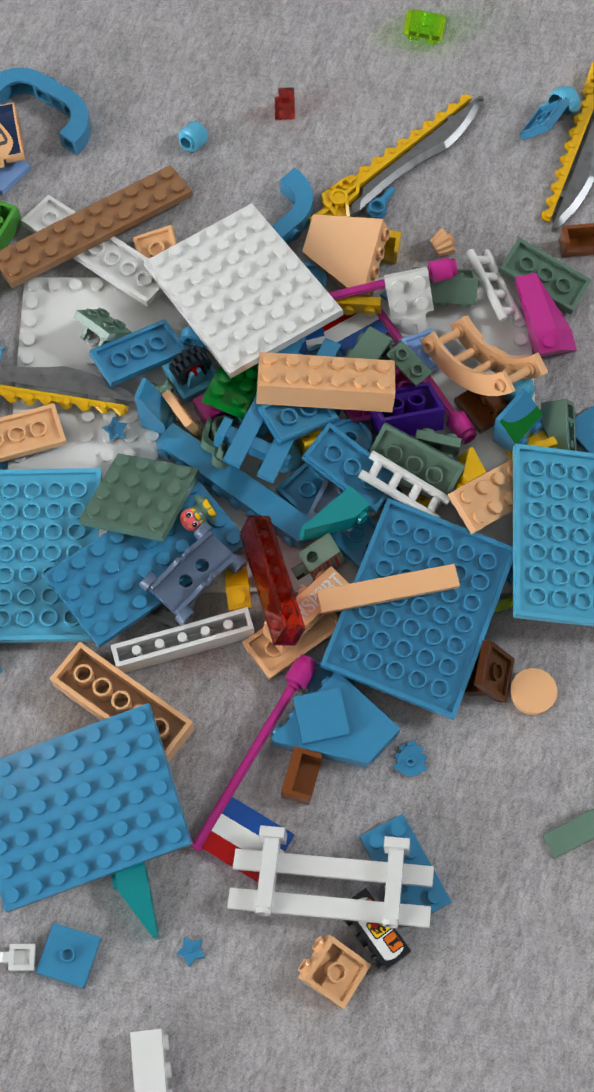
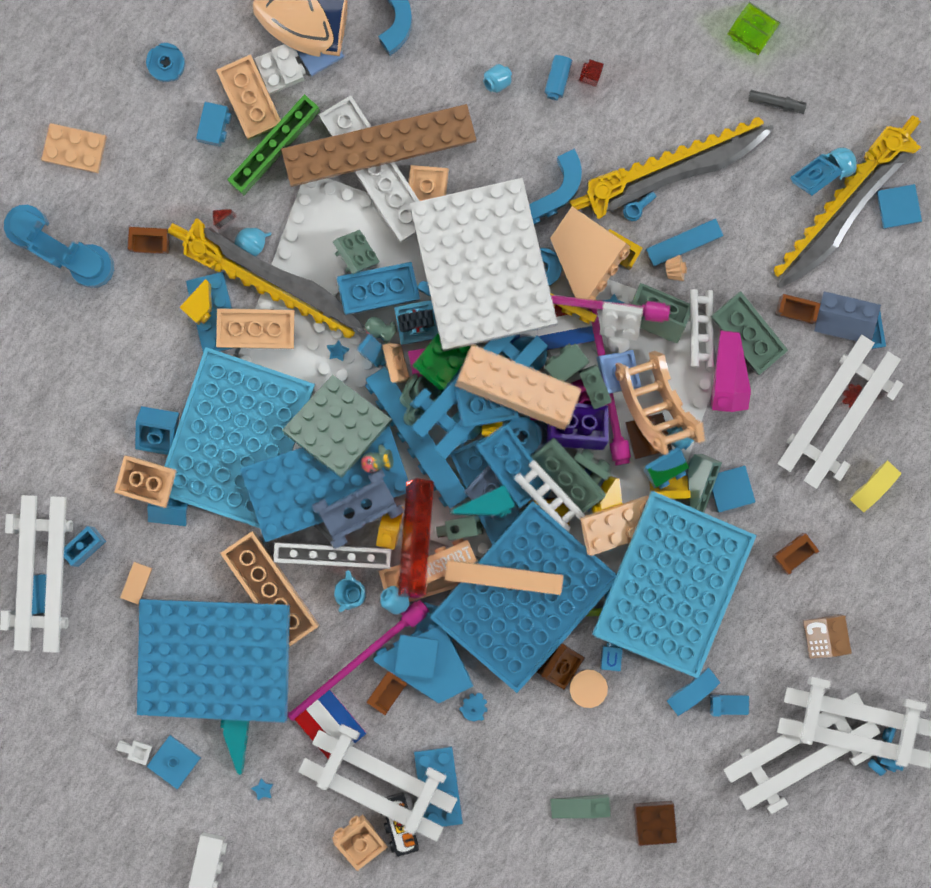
camera: 15 degrees right, 20 degrees up
(217, 675) = (349, 592): none -> medium azure hair
(253, 117) = (558, 77): none -> dark azure brick
(272, 661) = (393, 602): none -> medium azure head
(443, 218) = (684, 242): none -> dark azure tile
(486, 75) = (776, 101): none -> dark grey pin
(544, 646) = (611, 657): none -> dark azure brick

